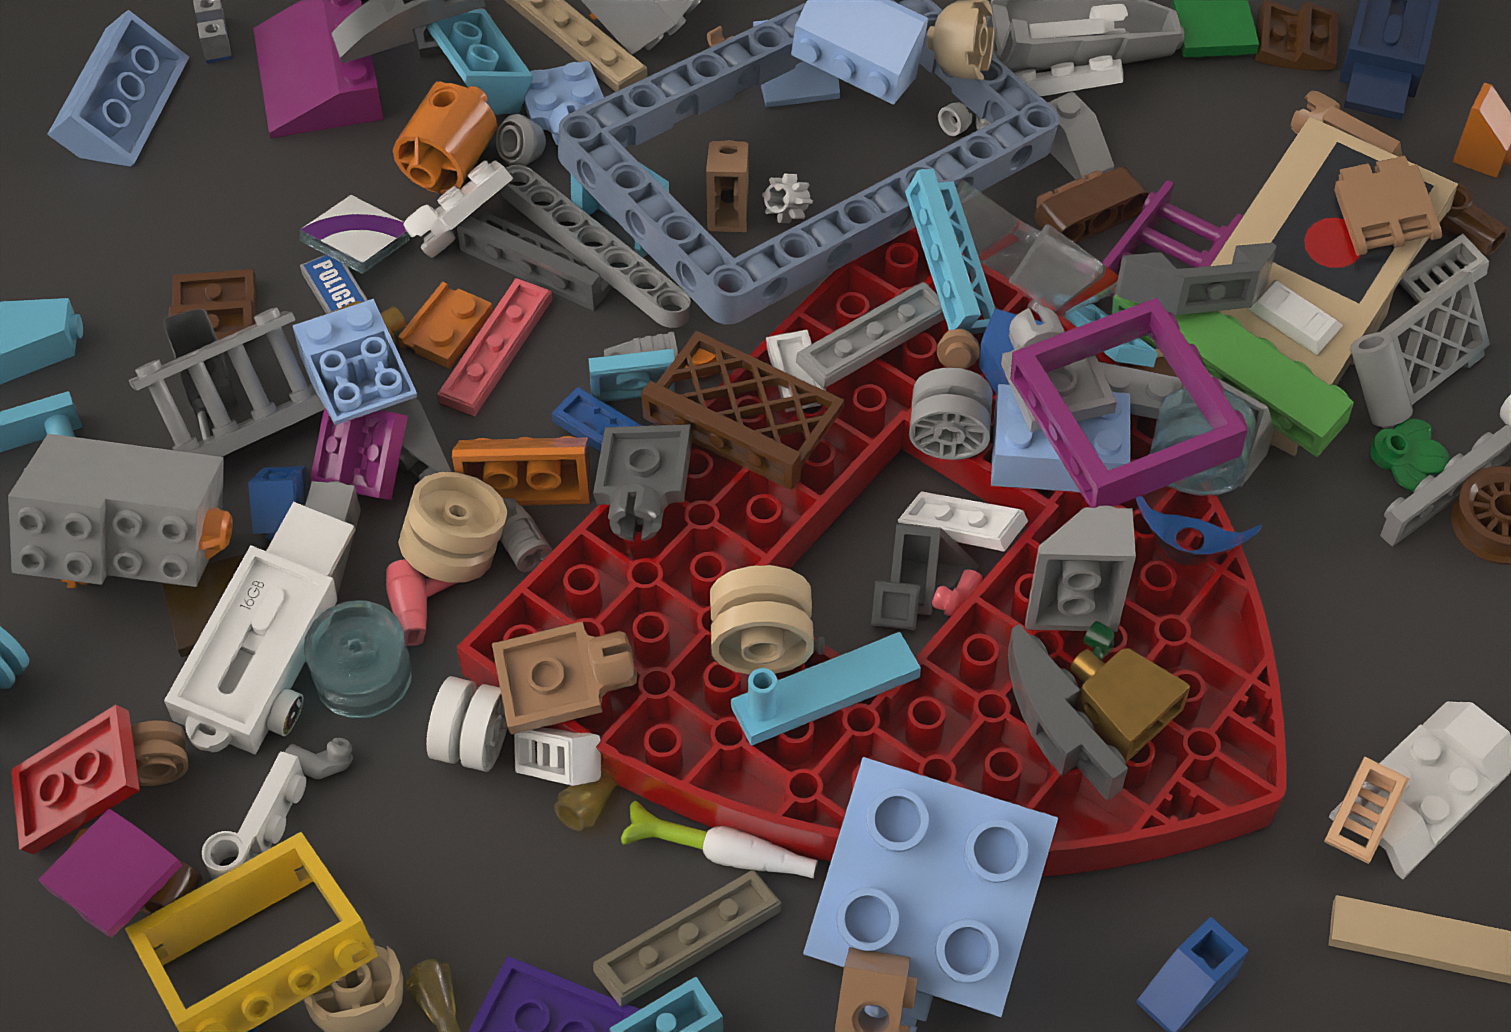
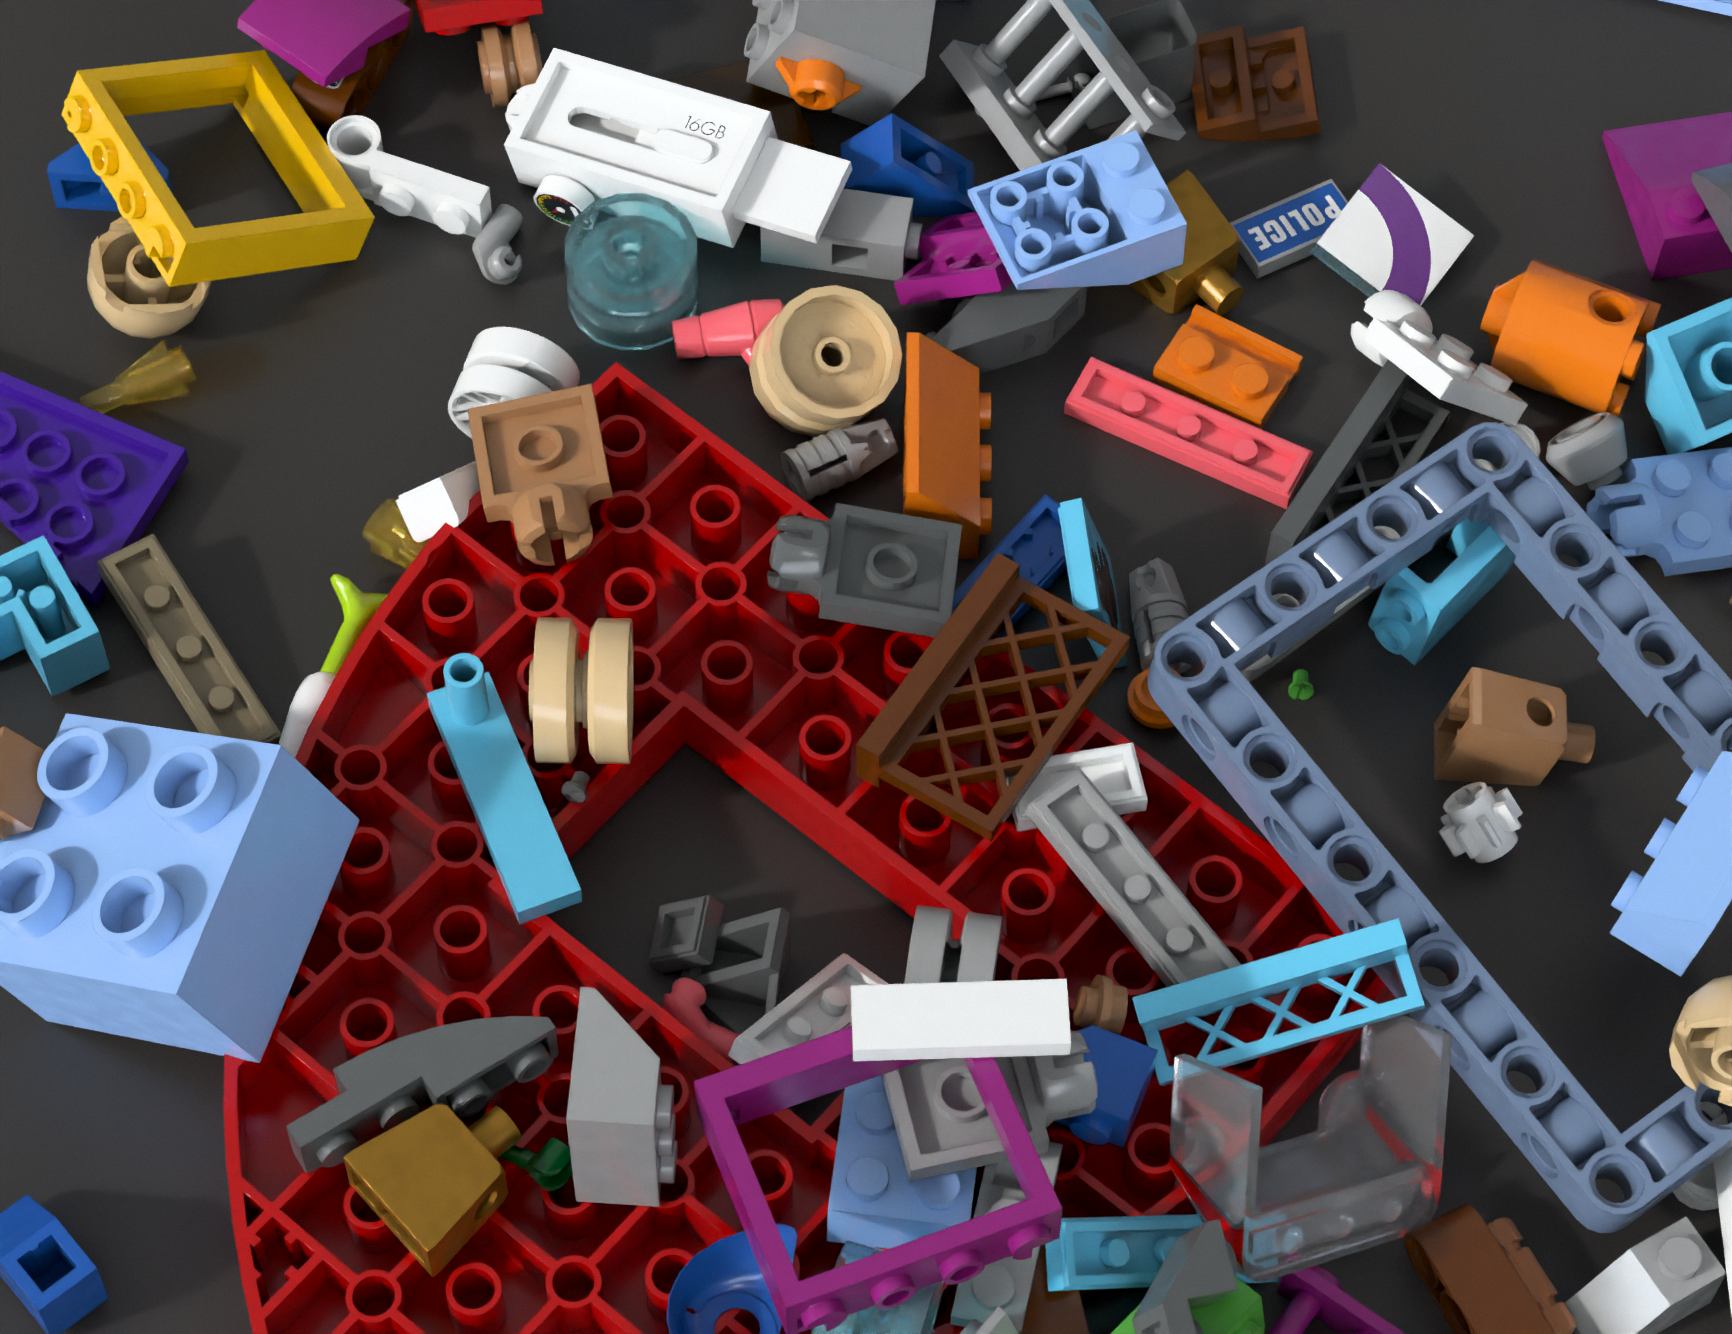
camera: 90 degrees right, 5 degrees up
(1042, 346) = (960, 1020): none -> white tile

